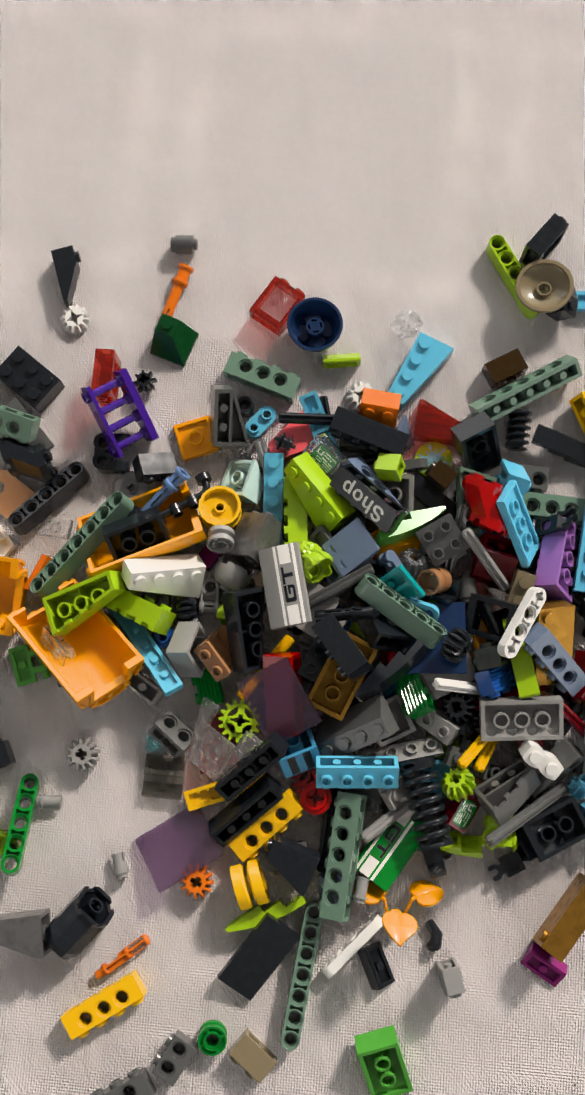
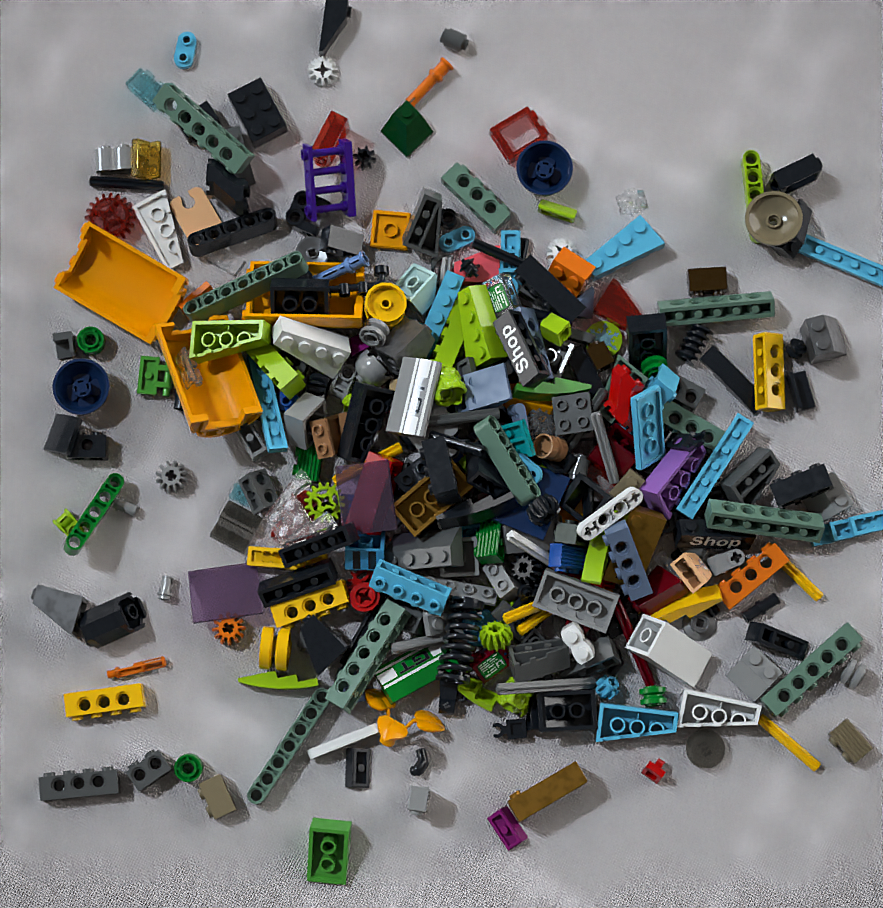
camera: 20 degrees right, 0 degrees up
(258, 956) = (257, 714): black tile -> none
(361, 890) = (371, 691): light grey pin -> none
(490, 465) = (651, 364): none -> green wheel

